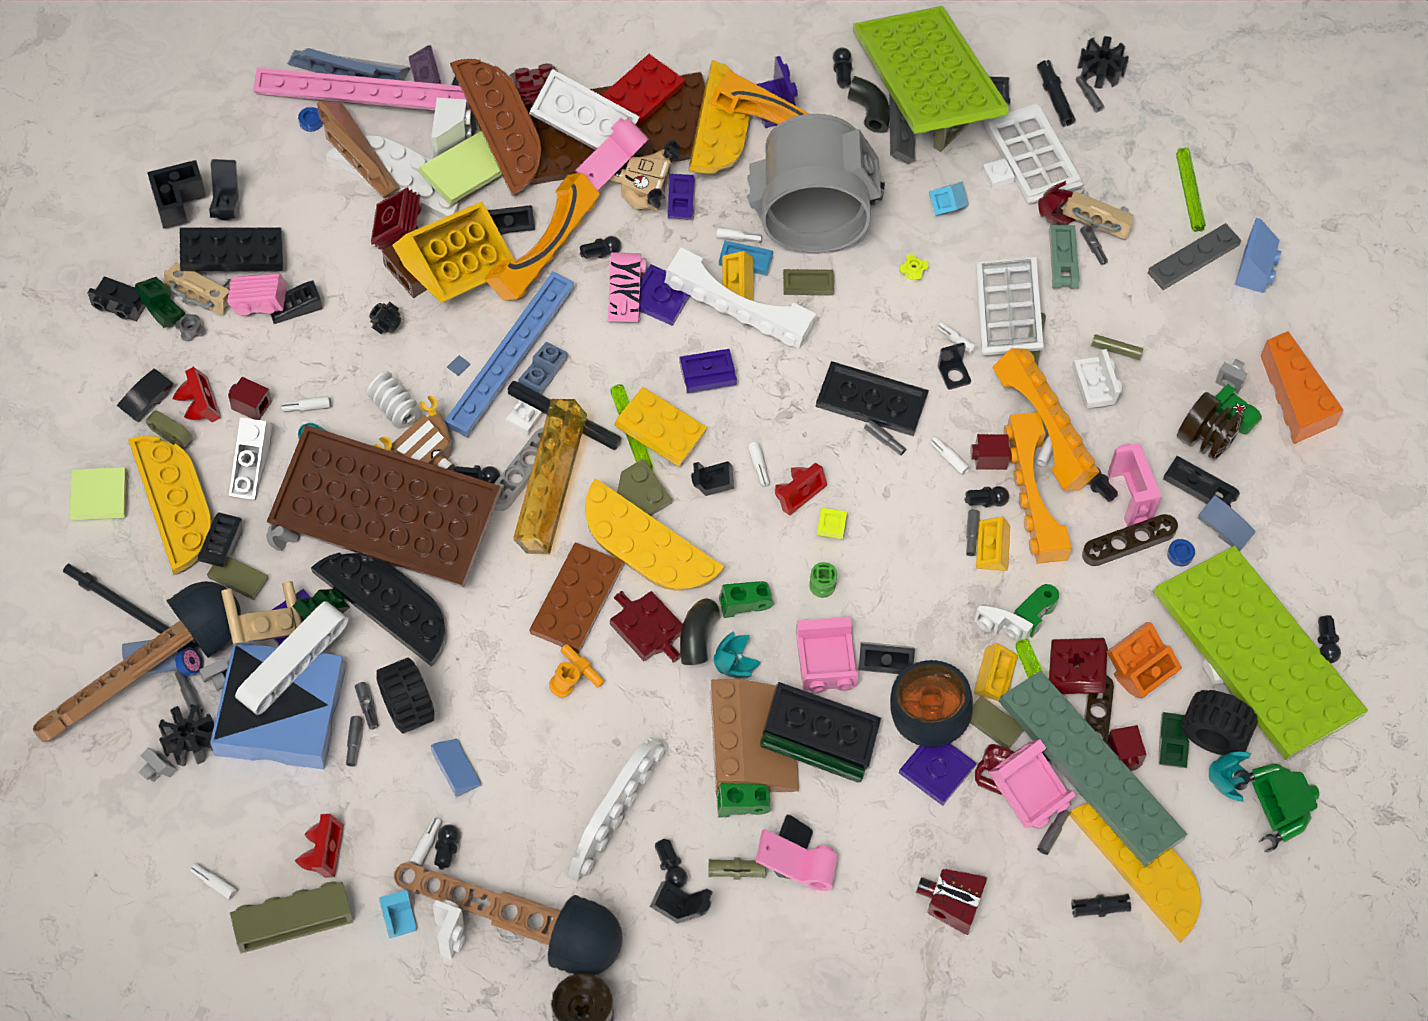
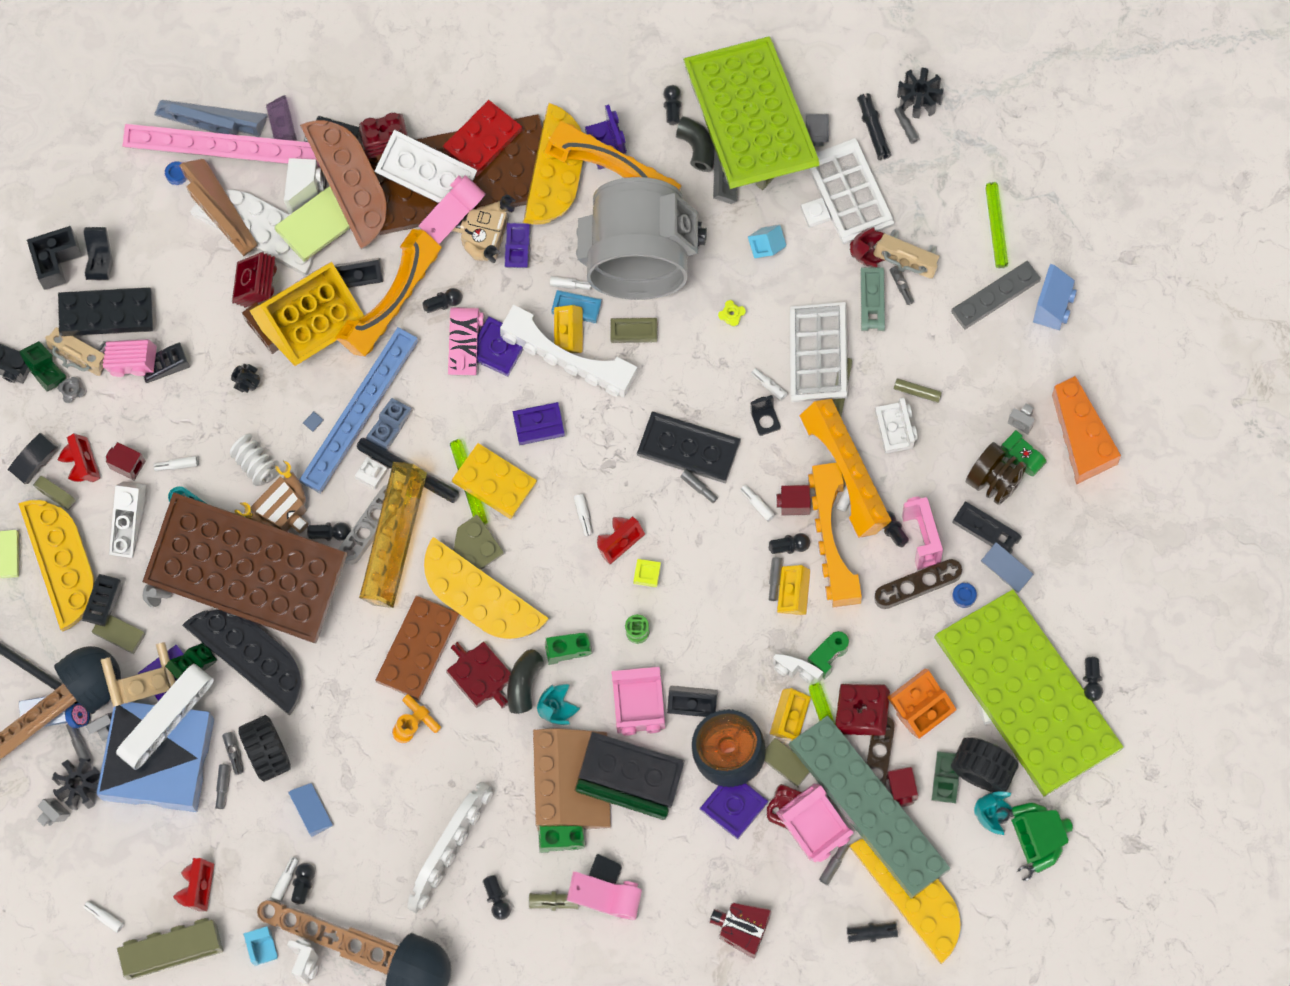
camera: 10 degrees right, 10 degrees up
(678, 904) = (503, 935): black bracket -> none
(713, 478) = (540, 531): black bracket -> none

